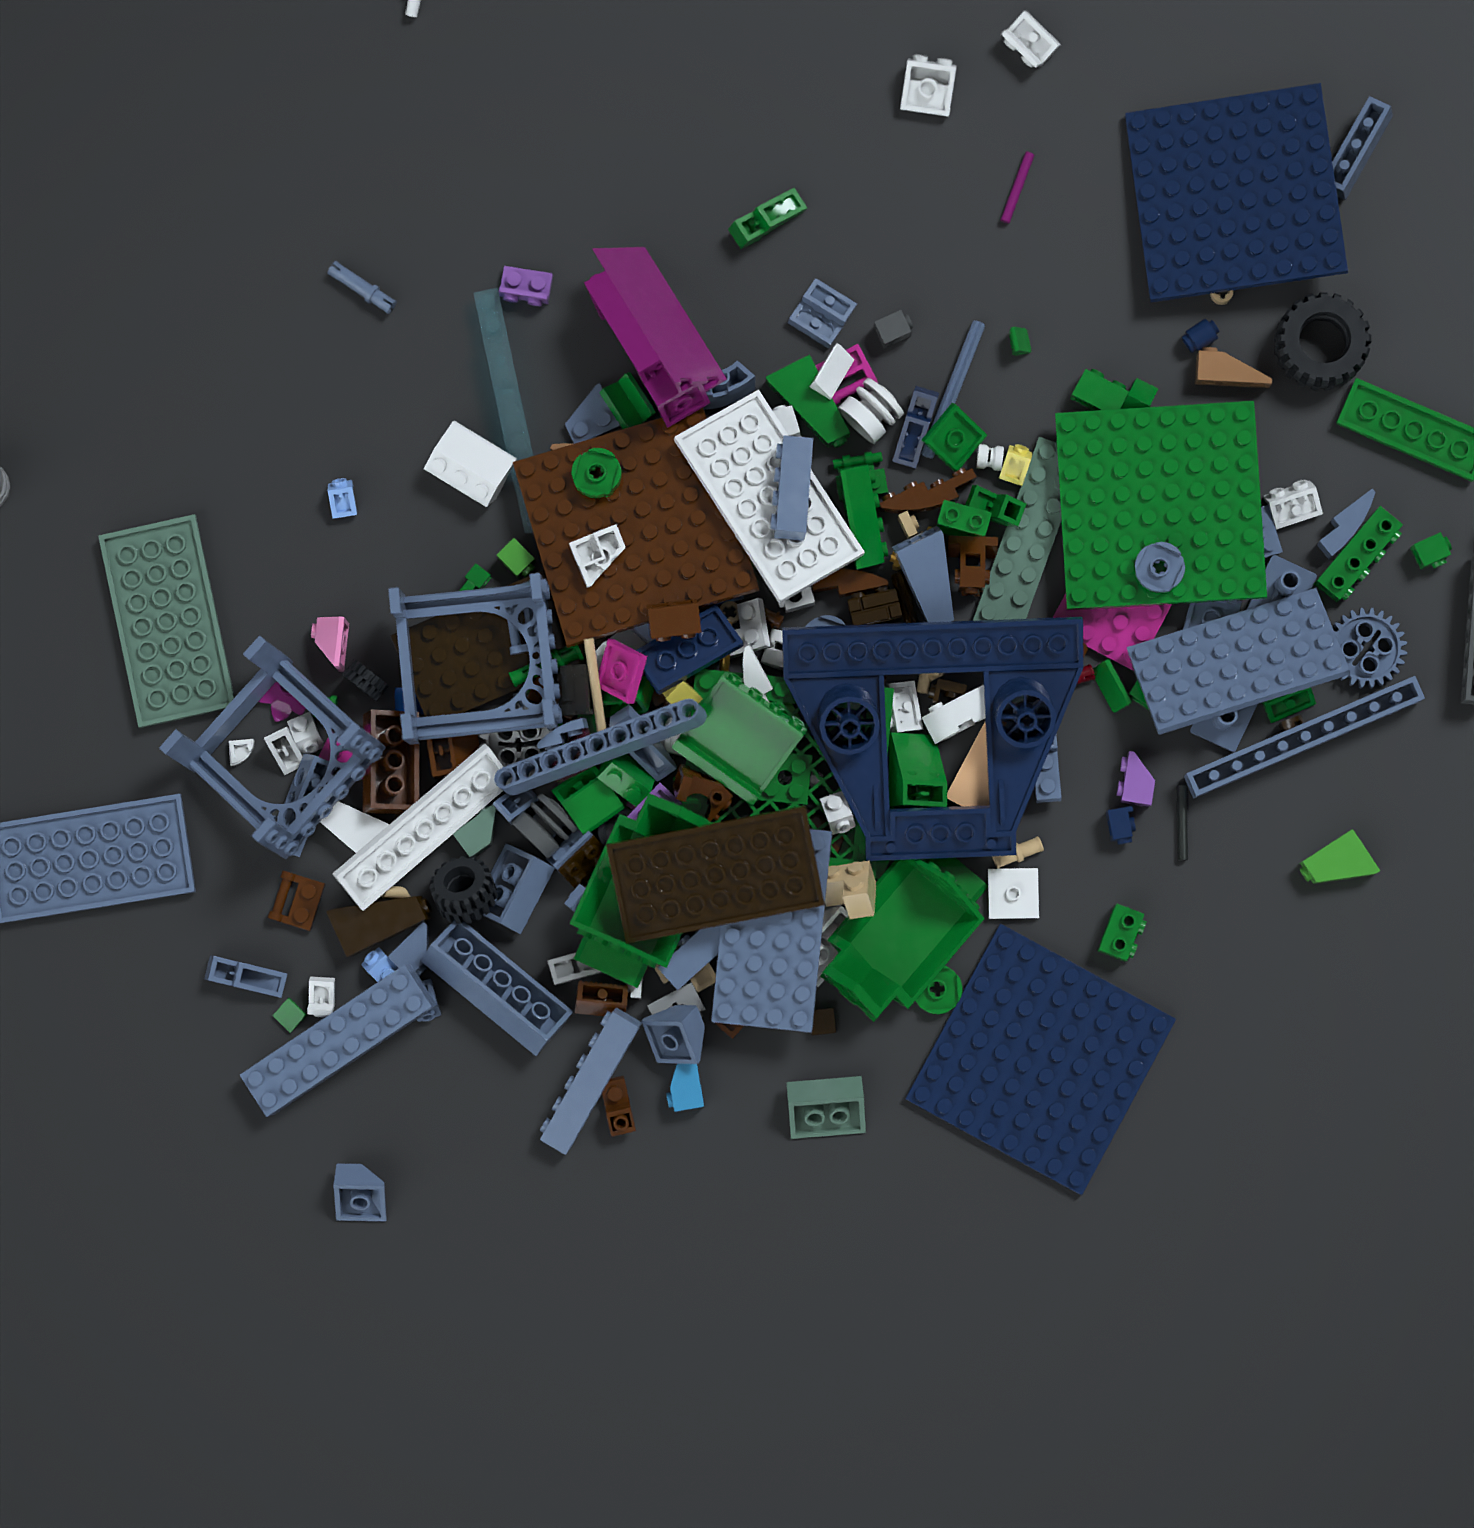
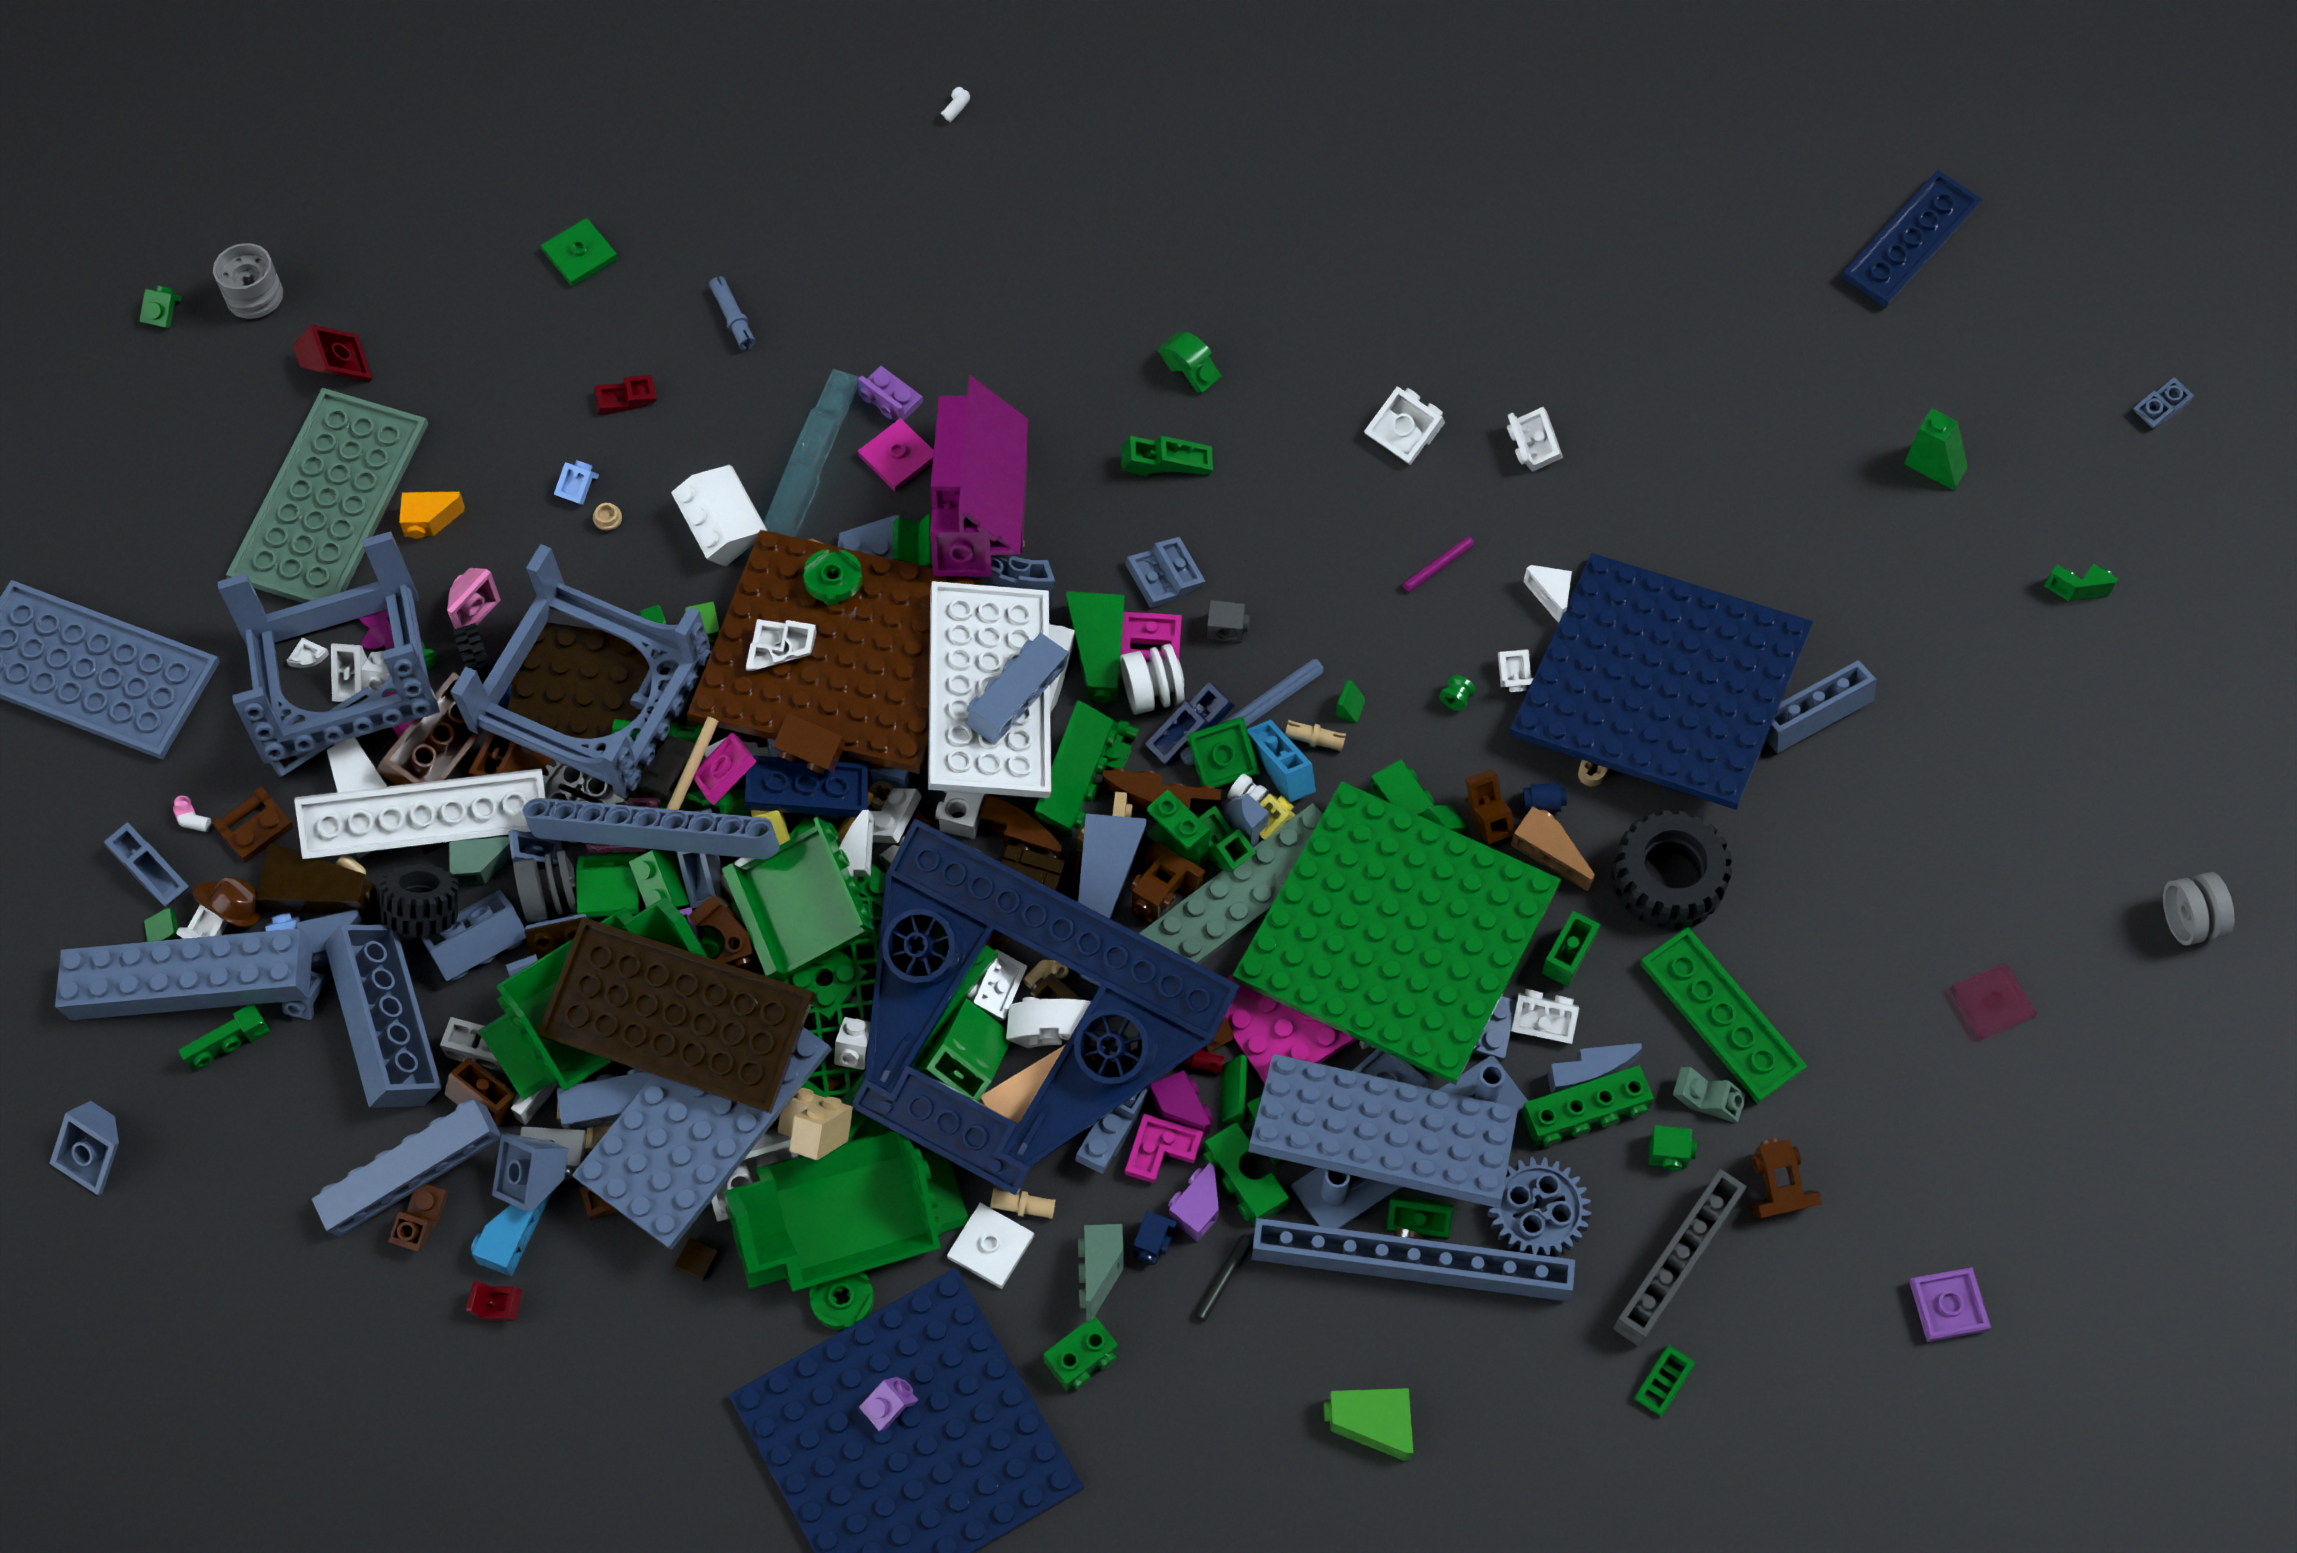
camera: 25 degrees right, 20 degrees down
(86, 504) = (332, 353): none -> dark red slope
(208, 303) = (579, 252): none -> green plate
(245, 923) = (186, 815): none -> arm
(250, 589) = (428, 512): none -> light orange slope
(324, 967) = (230, 899): none -> reddish brown piece
(327, 404) = (625, 396): none -> dark red slope
(383, 512) = (607, 517): none -> tan plate
(404, 1045) = (227, 1038): none -> green plate
(557, 736) = (625, 795): sand blue slope -> none
(564, 332) = (897, 454): none -> dark pink plate
(709, 1132) = (494, 1302): none -> dark red bracket
(735, 123) = (1190, 355): none -> green brick
(826, 1107) = (636, 1351): sand green slope -> none
(832, 371) = (1136, 620): white slope -> none
(998, 416) = (1283, 761): none -> dark azure slope
(1000, 480) = (1247, 815): none -> sand blue slope
(1009, 382) = (1315, 735): none -> tan pin
(1017, 1043) = (888, 1402): none -> medium lavender bracket
(1080, 753) = (1161, 1138): none -> dark pink plate
(1082, 719) = (1178, 1102): none -> magenta slope
(1092, 287) = (1457, 692): none -> green wheel
(1097, 860) = (1102, 1266): none -> sand green slope
(1113, 161) = (1550, 587): none -> white slope
(1124, 245) = (1515, 670): none -> white bracket
(1135, 736) = (1258, 1197): none -> green arch
(1167, 369) = (1487, 809): none -> reddish brown brick
(1172, 561) = (1356, 999): sand blue plate -> none
(1285, 444) = (1570, 948): none -> green brick
(1436, 496) = (1709, 1097): none -> sand green slope

